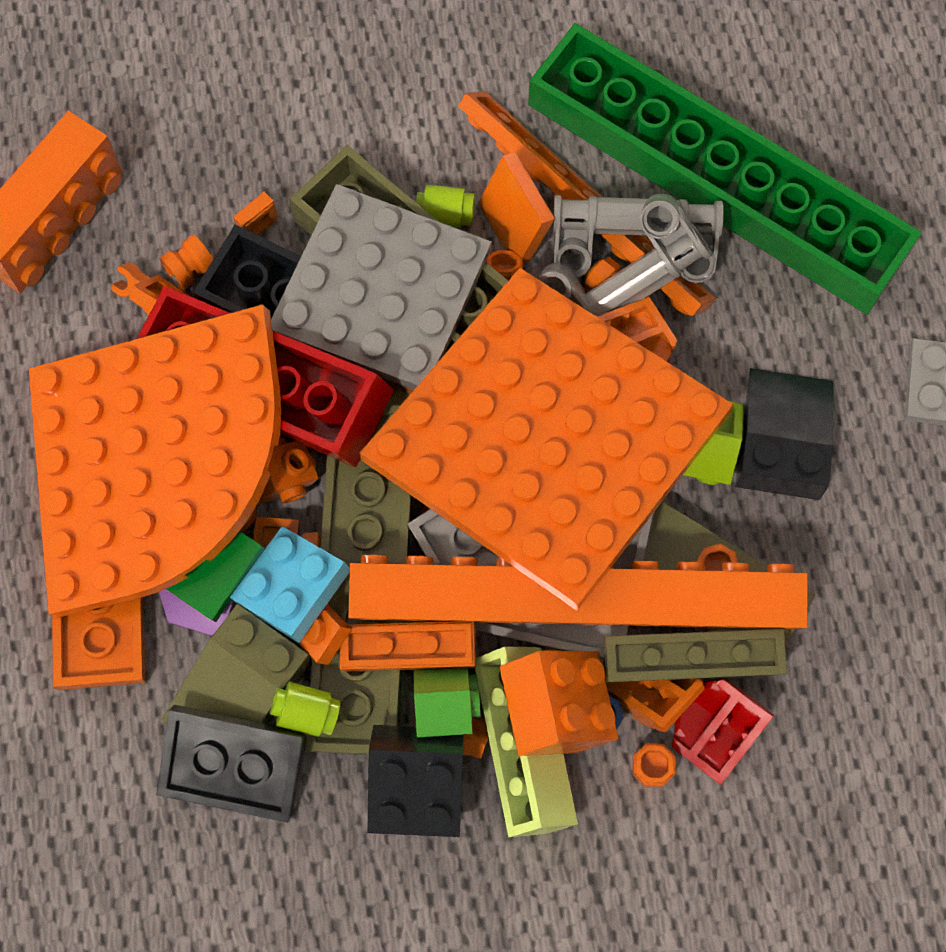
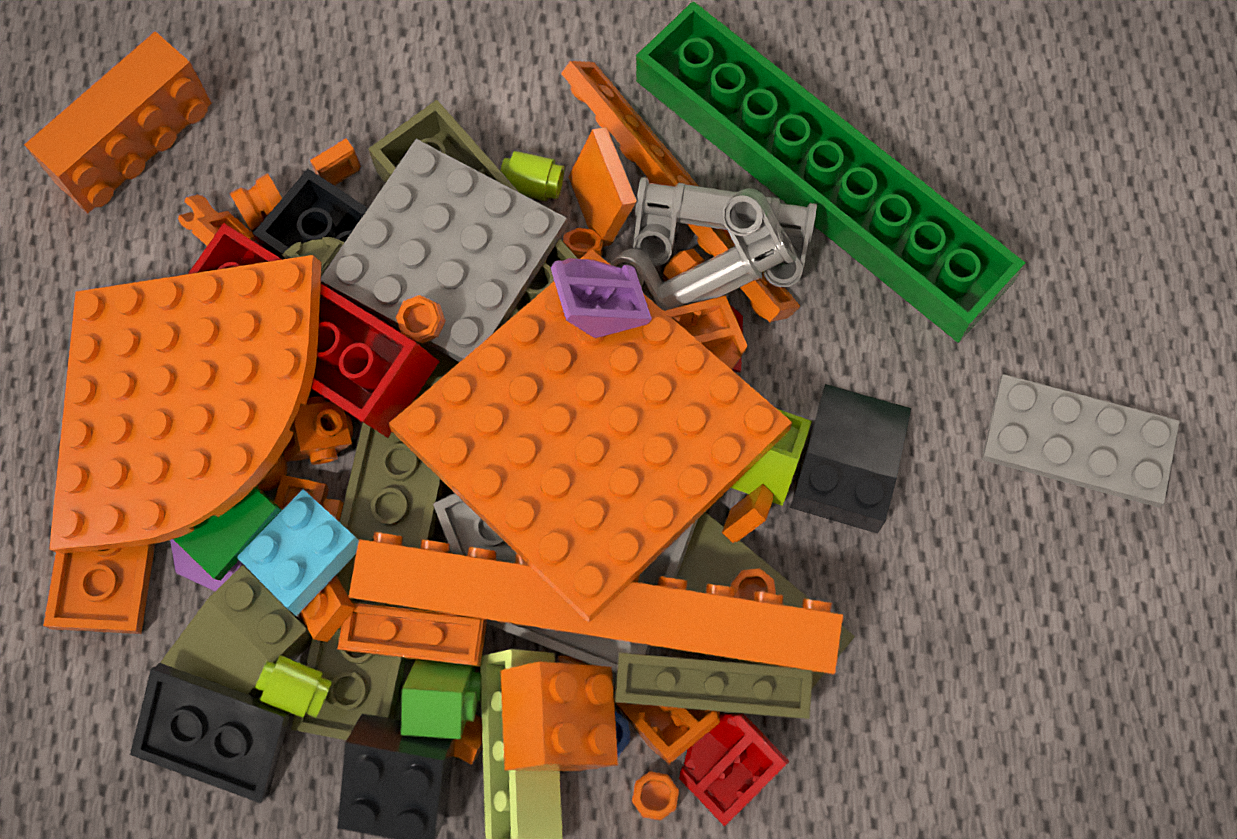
camera: 10 degrees right, 0 degrees up
(268, 297) = (323, 249): none -> olive tile
(373, 351) = (420, 319): none -> orange tile
(540, 310) = (600, 296): none -> medium lavender slope
(700, 496) = (748, 514): none -> orange tile

